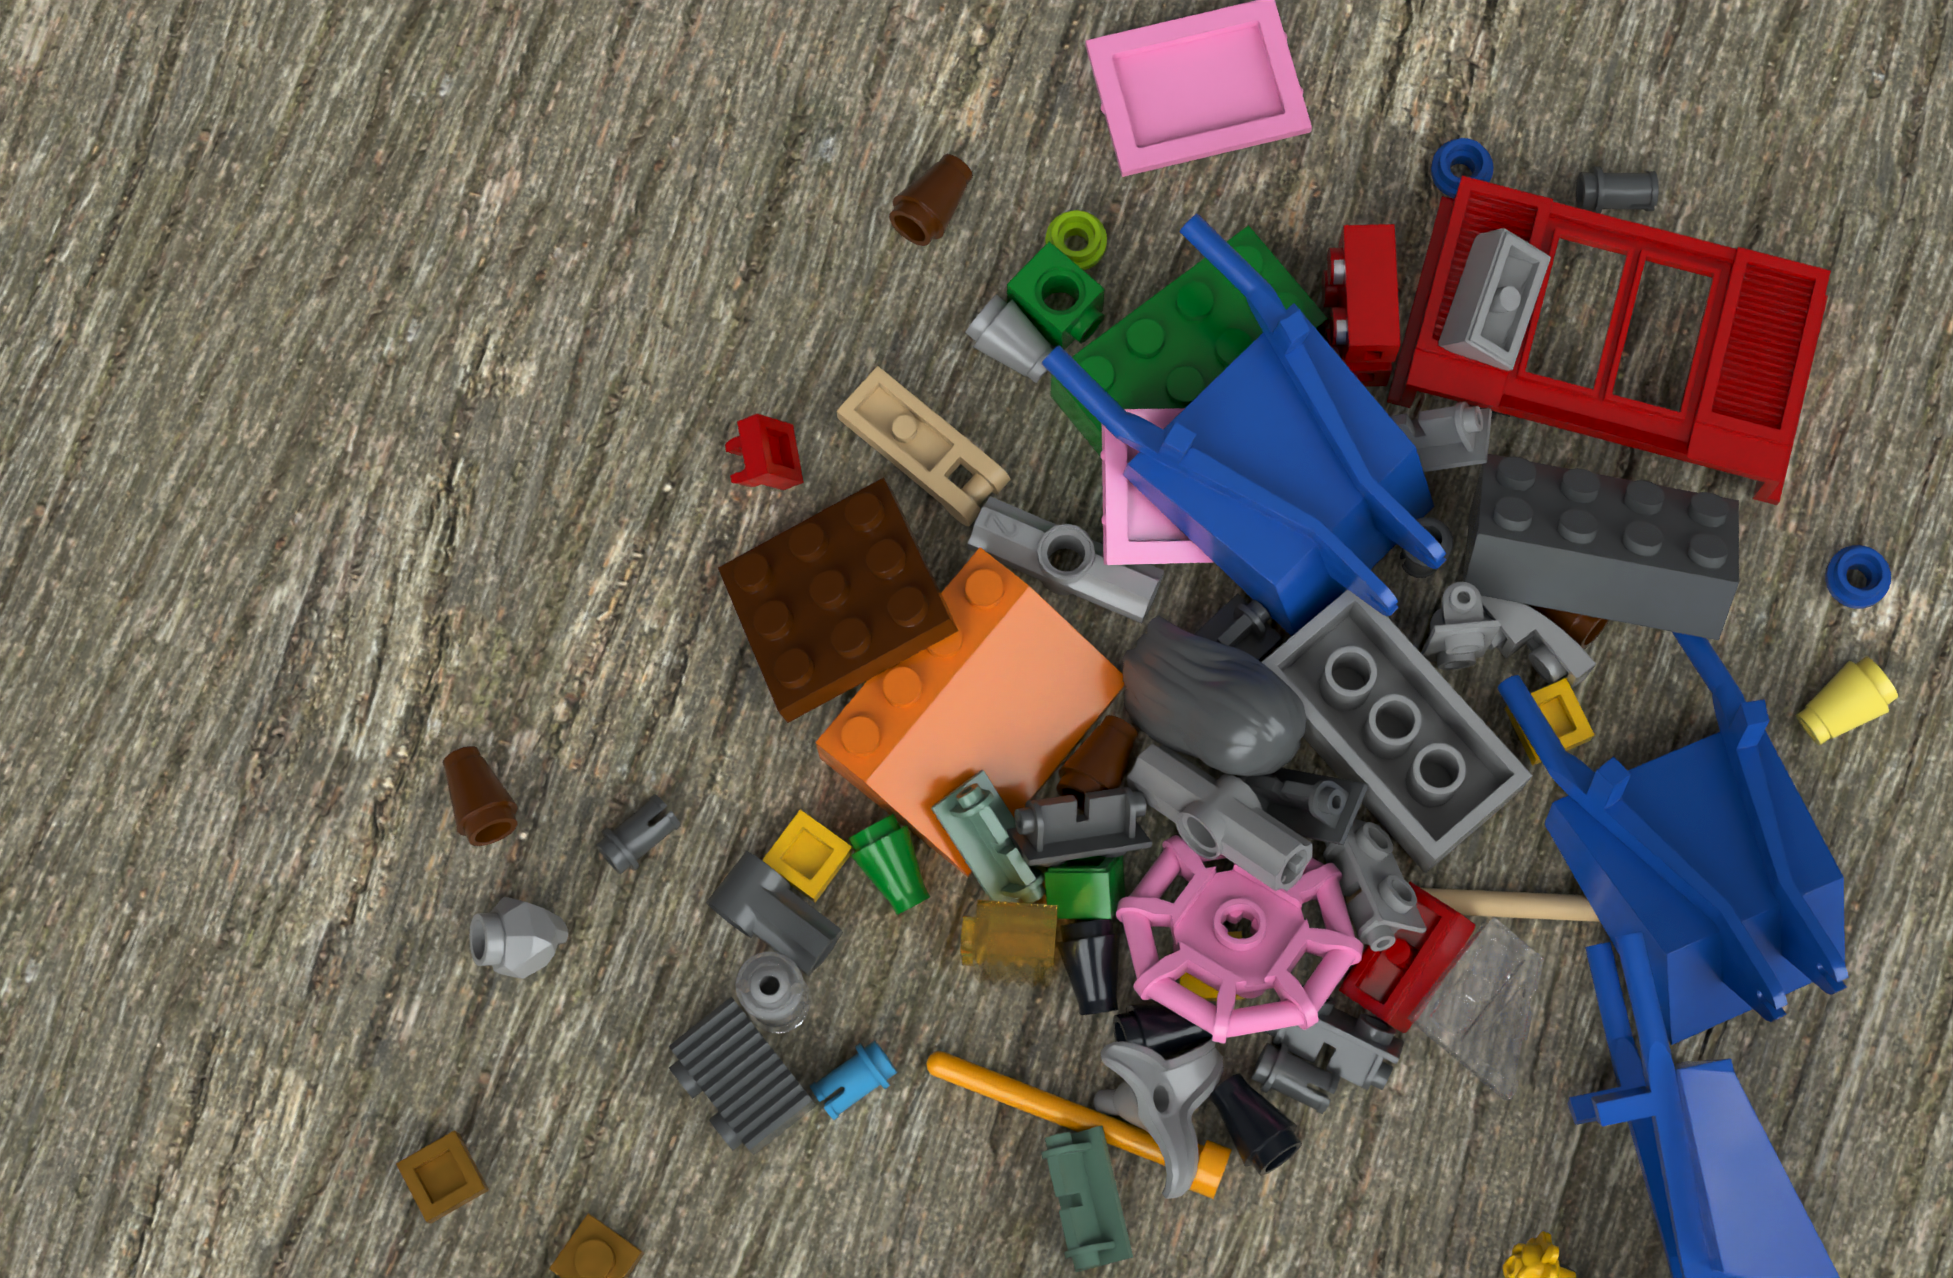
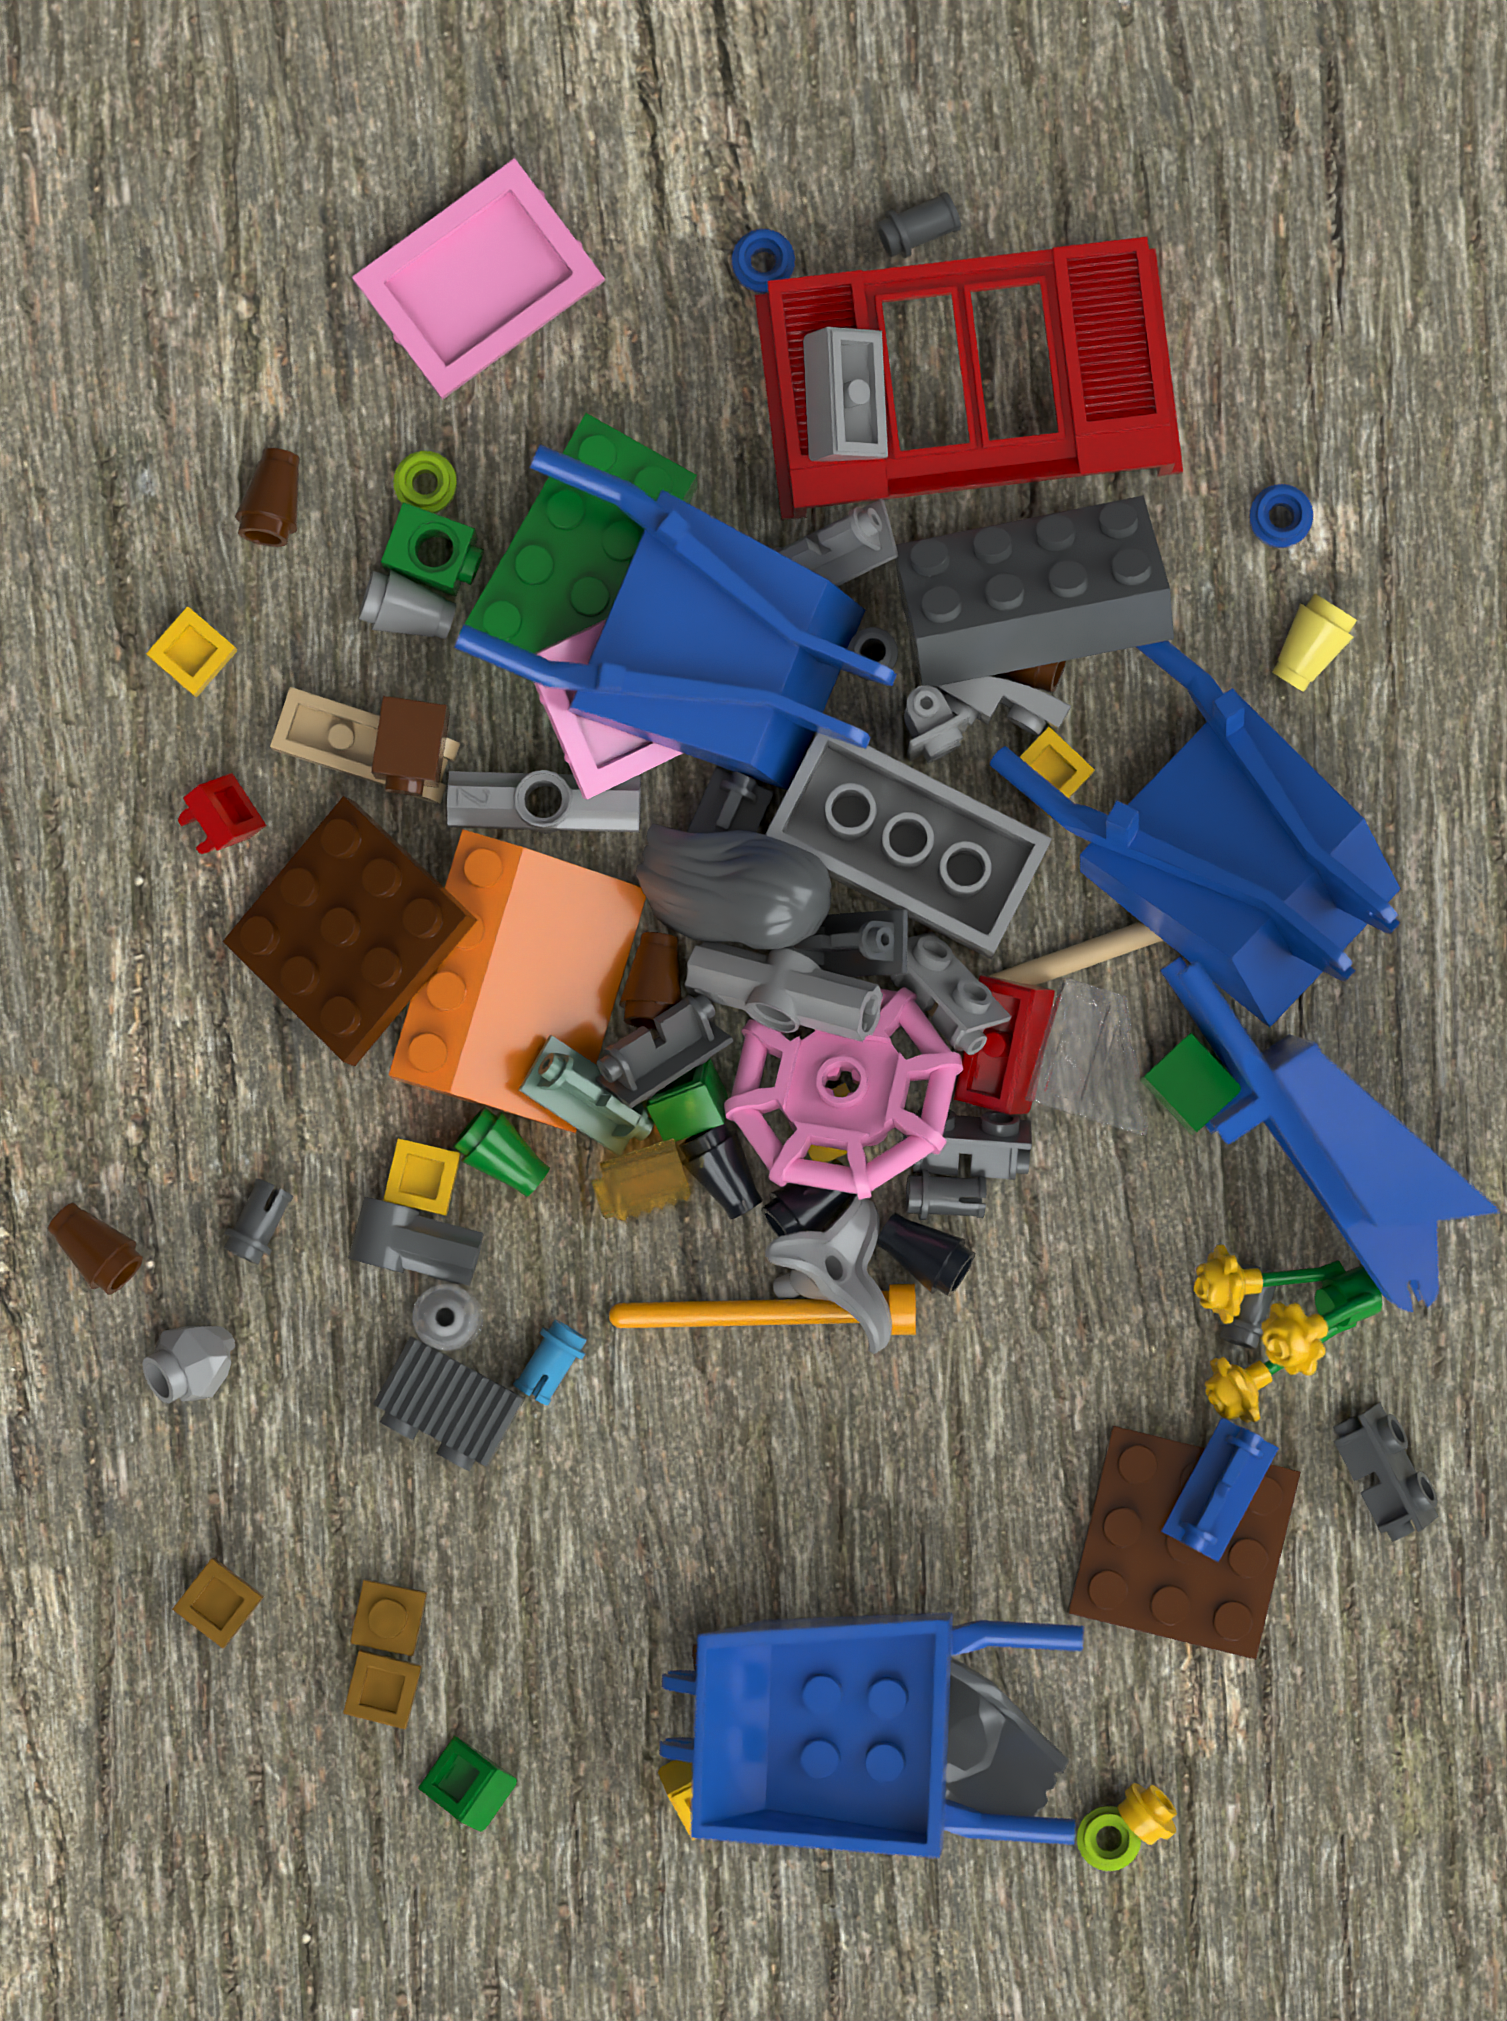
camera: 25 degrees left, 10 degrees up
(802, 303) = (191, 652): none -> yellow plate
(964, 453) = (410, 745): none -> reddish brown brick
(1087, 1198) = (804, 1381): sand green hinge -> none
(1364, 301) = (716, 428): red piece -> none
(1573, 1066) = (1191, 1084): none -> green panel

